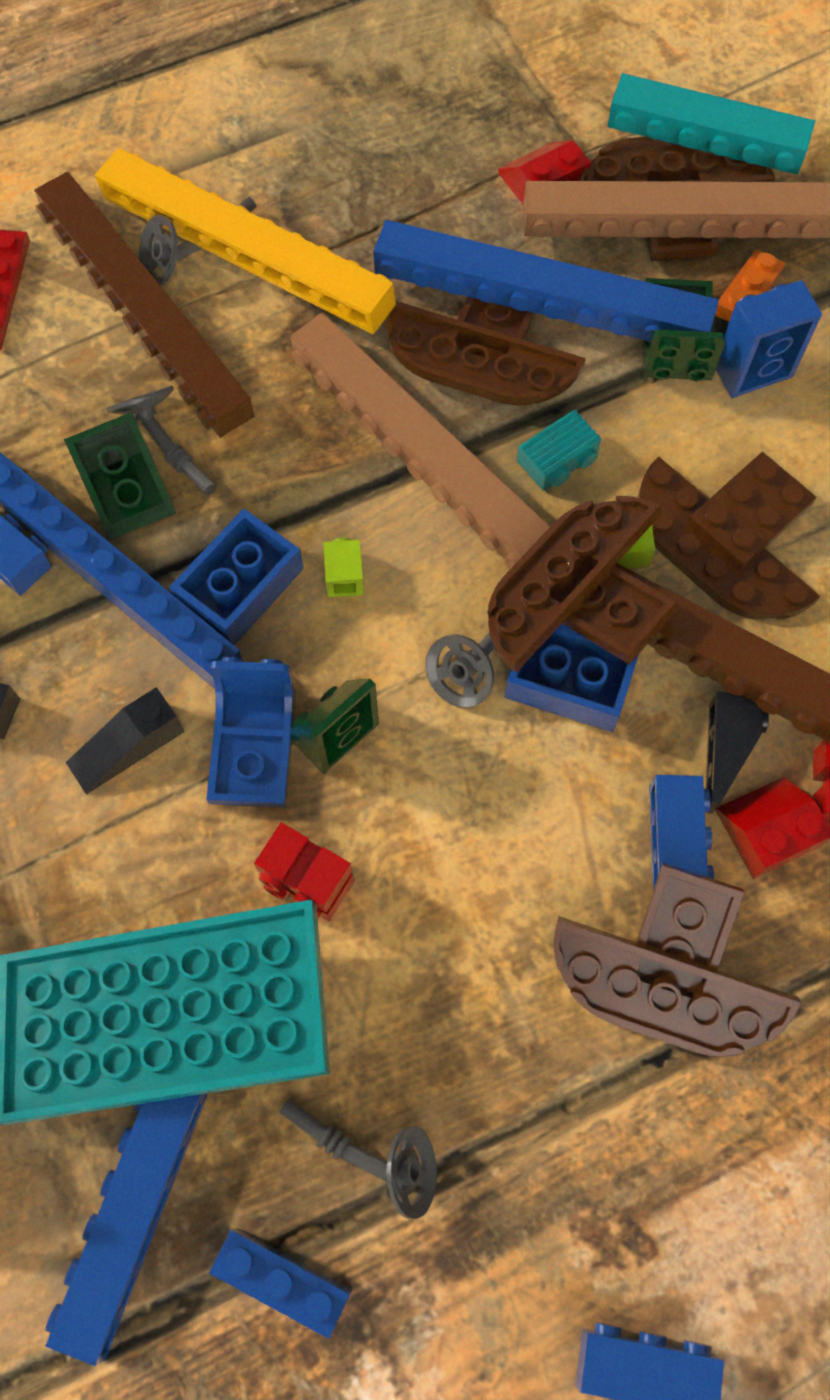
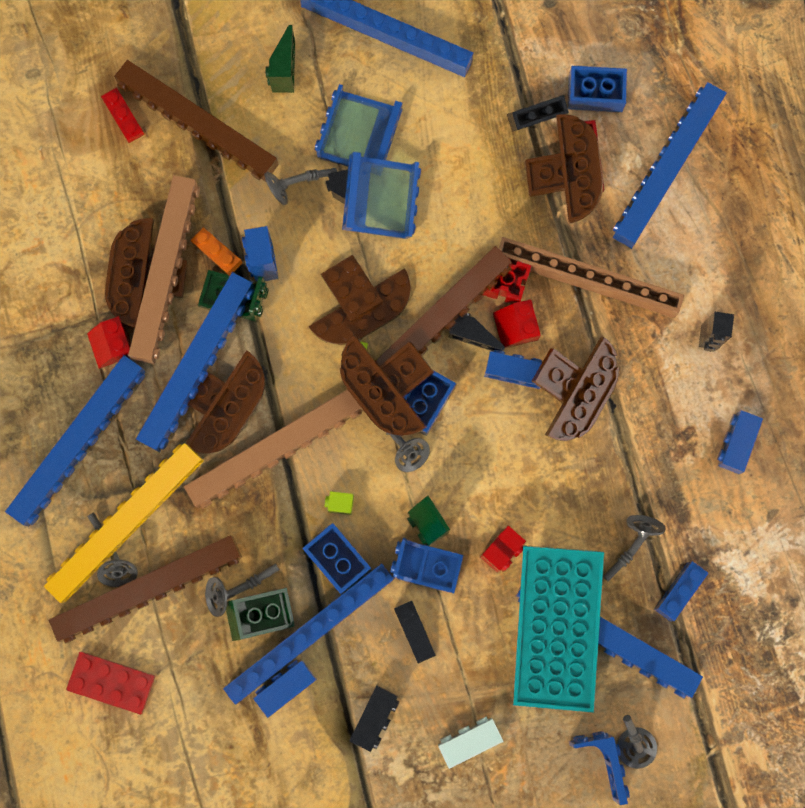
camera: 80 degrees left, 10 degrees up
(371, 159) = (75, 442): none -> blue brick
(559, 450) = (295, 377): teal brick -> none
(710, 123) = (112, 244): teal brick -> none

